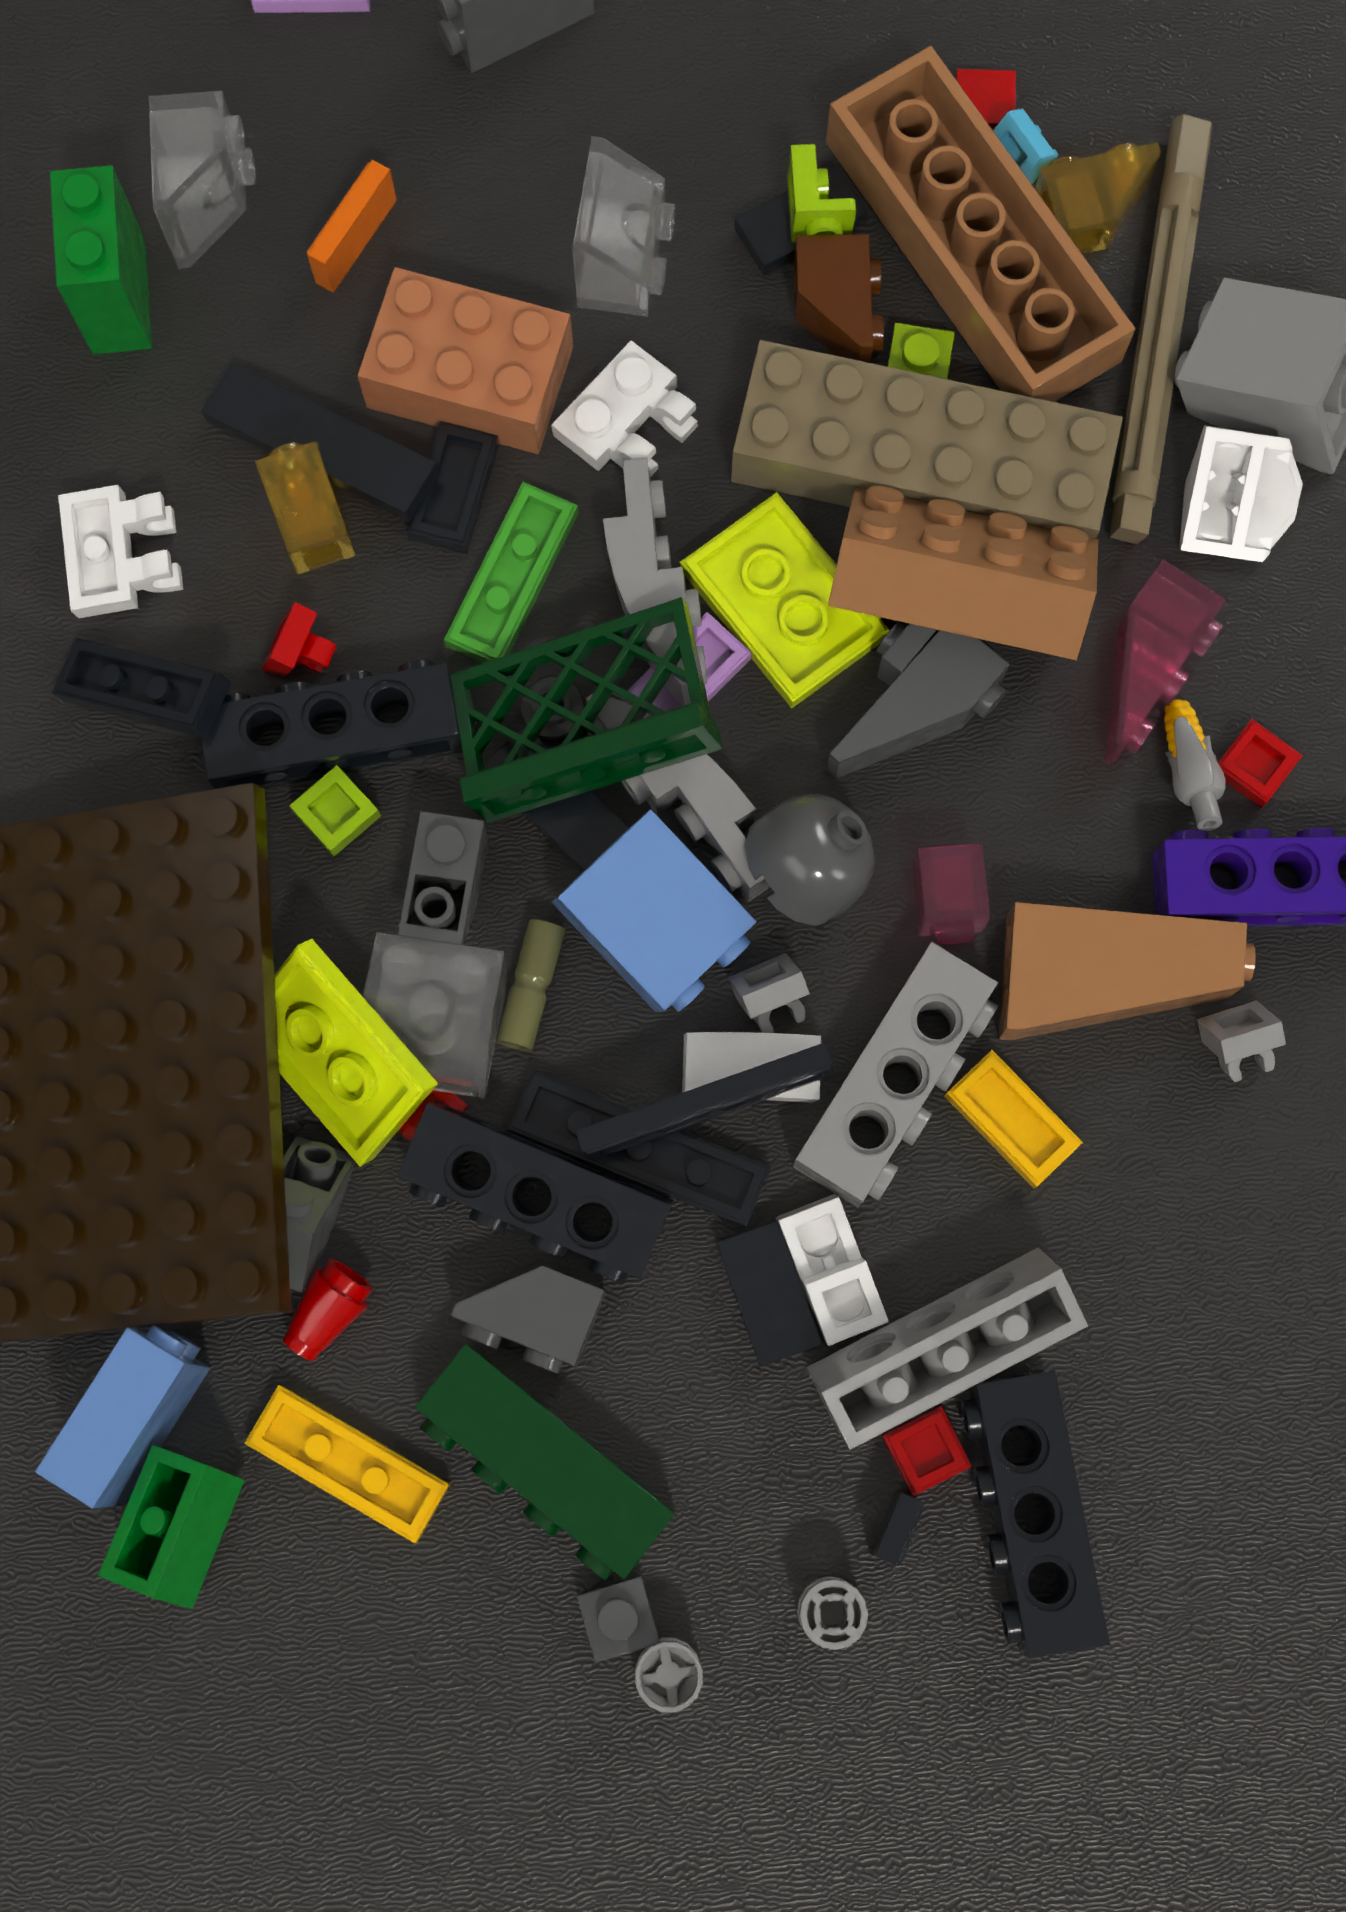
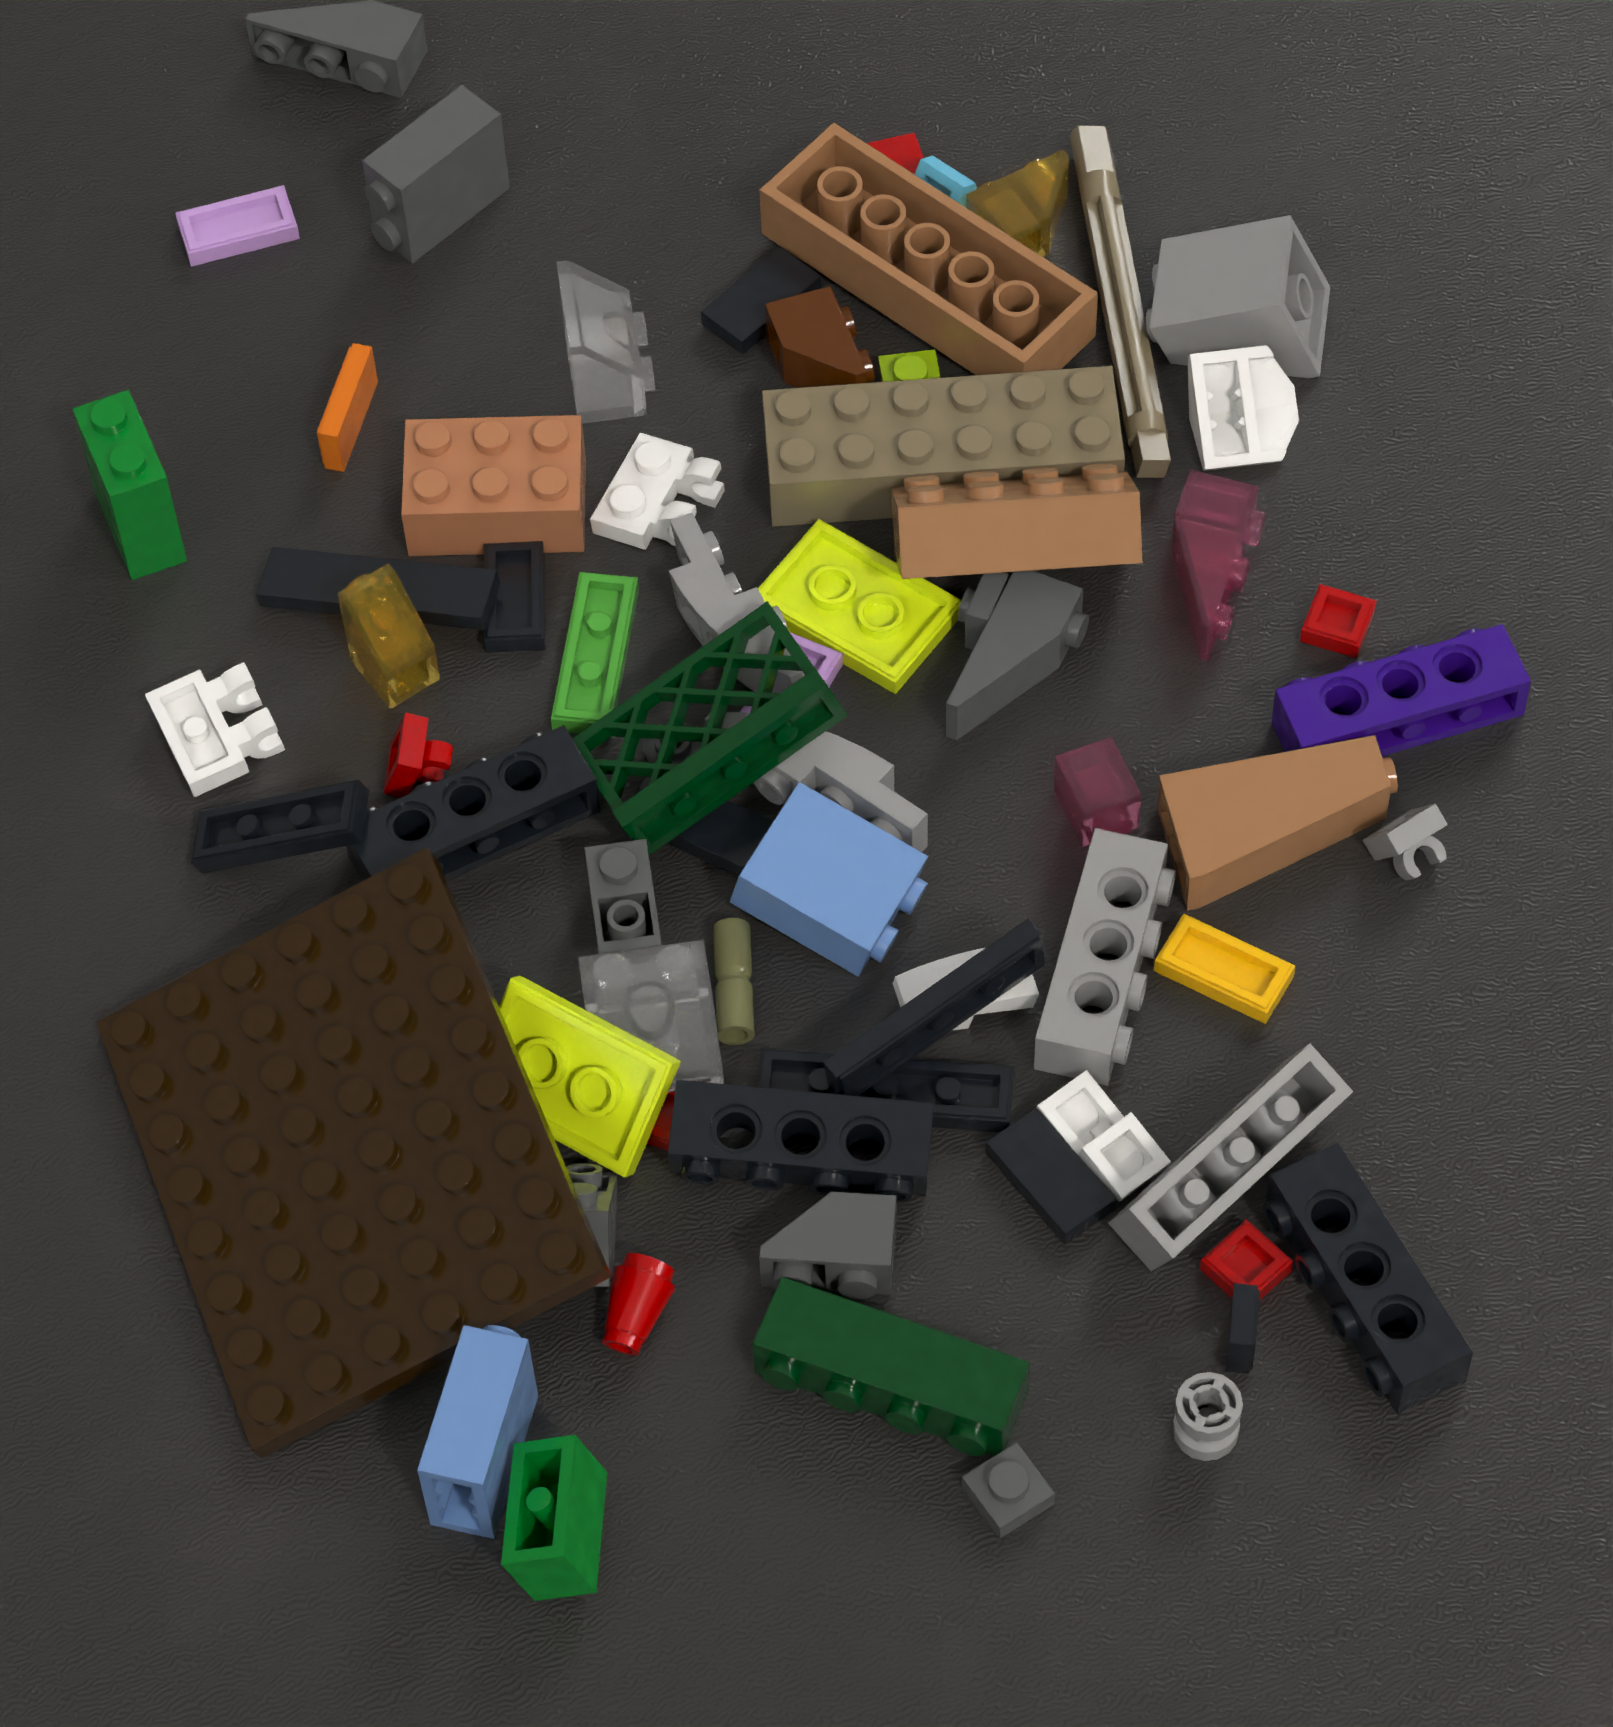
camera: 15 degrees left, 20 degrees down
(197, 170) = (193, 390): clear slope -> none
(335, 810) = (497, 885): lime plate -> none
(347, 1463) = (701, 1434): yellow tile -> none
(673, 1684) = (1080, 1500): light grey wheel -> none
(769, 987) = (960, 916): light grey tile -> none
(809, 198) = (764, 271): lime bracket -> none
(811, 857) = (963, 785): dark grey cylinder -> none
(1194, 767) = (1281, 632): light grey piece -> none

